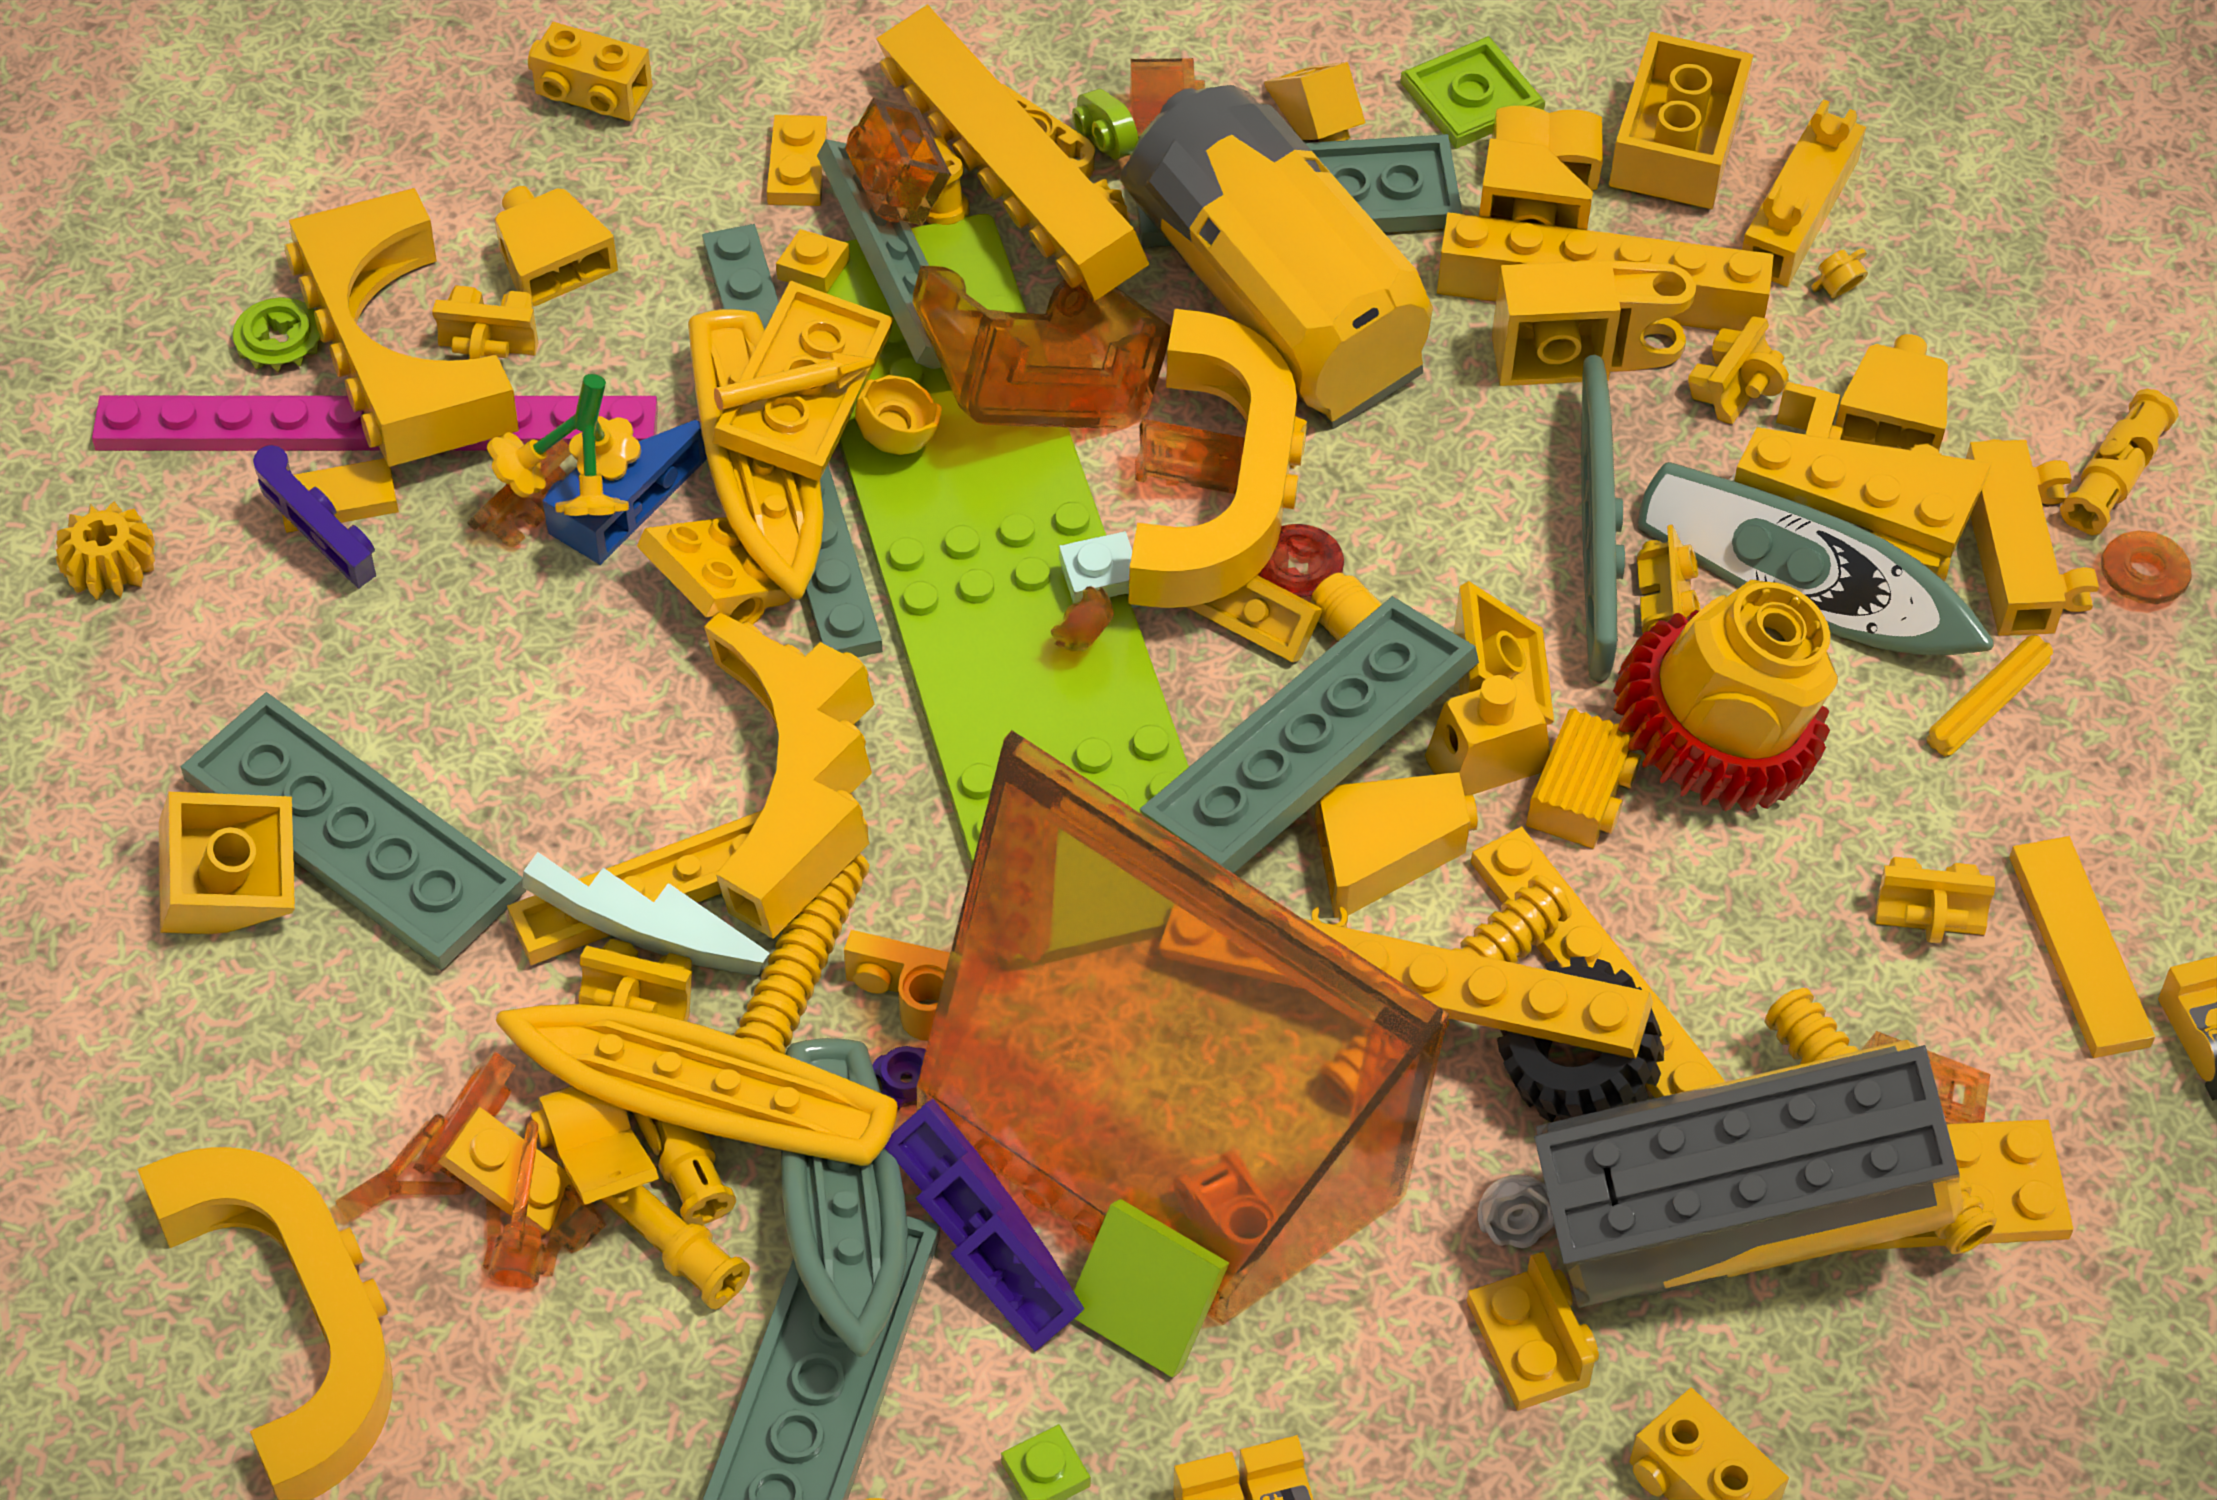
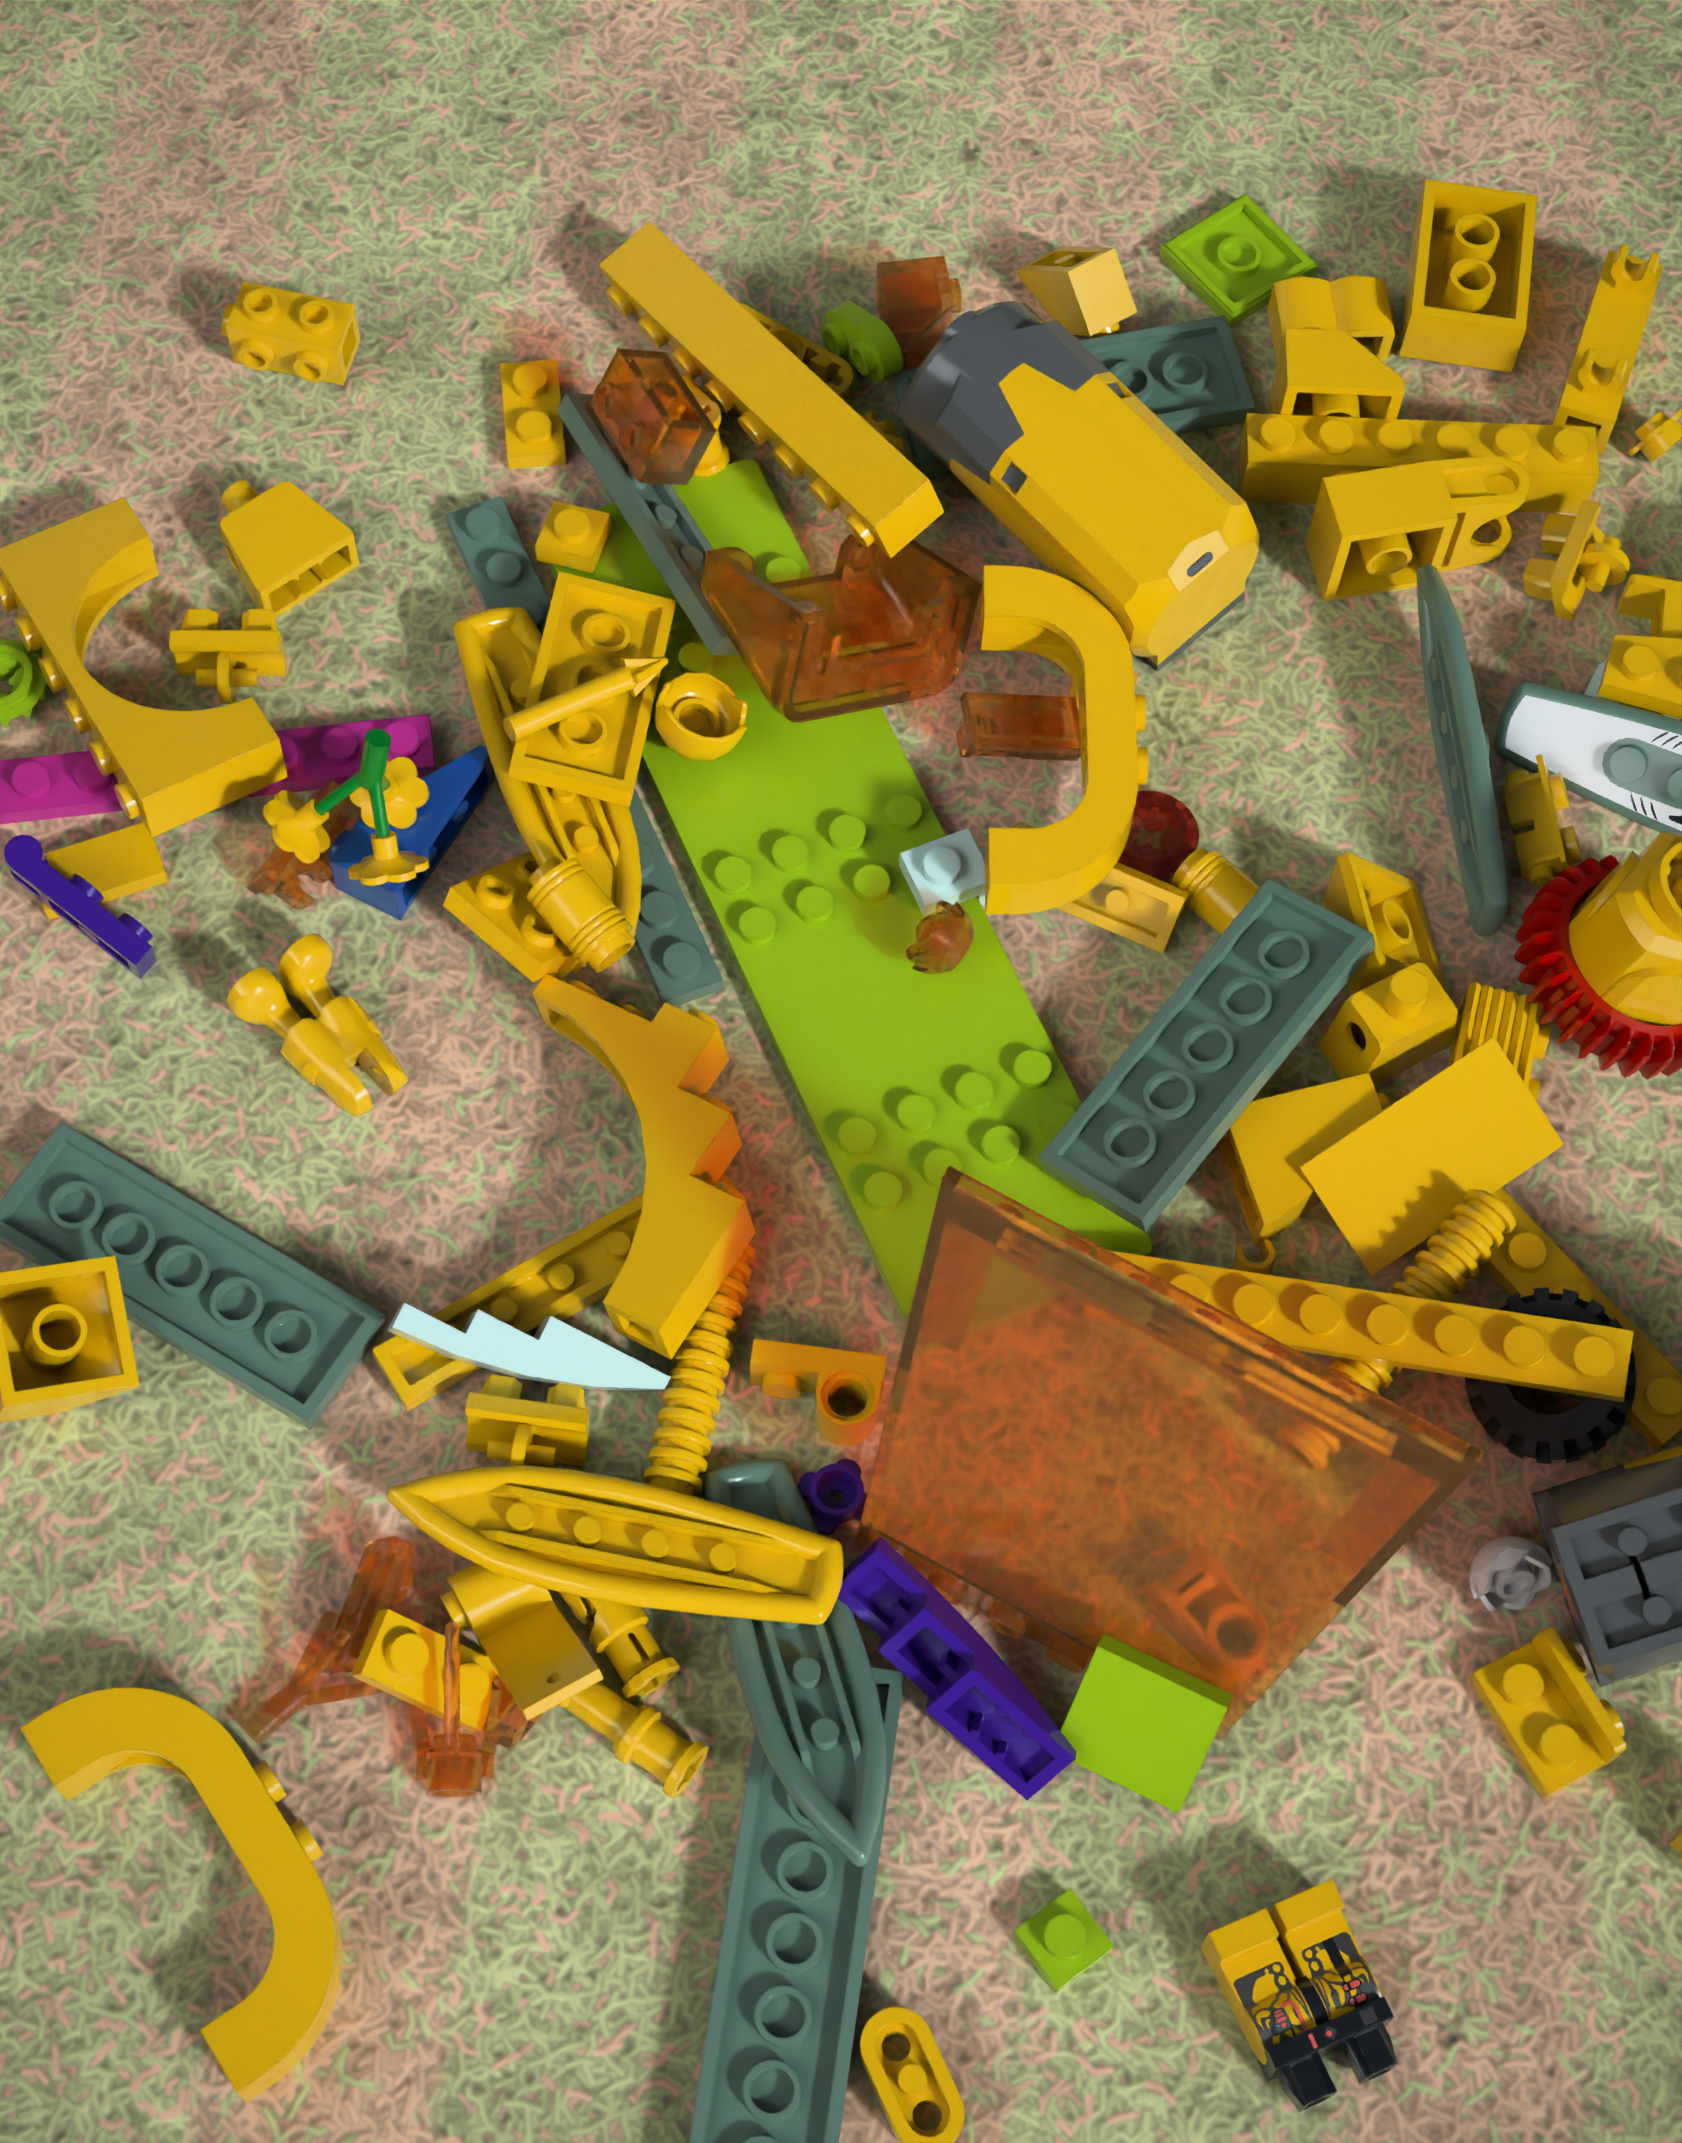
camera: 10 degrees left, 10 degrees up
(513, 656) = (325, 1046): none -> yellow piece
(756, 560) = (580, 913): none -> yellow head
(1490, 846) = (1420, 1156): none -> yellow sticker

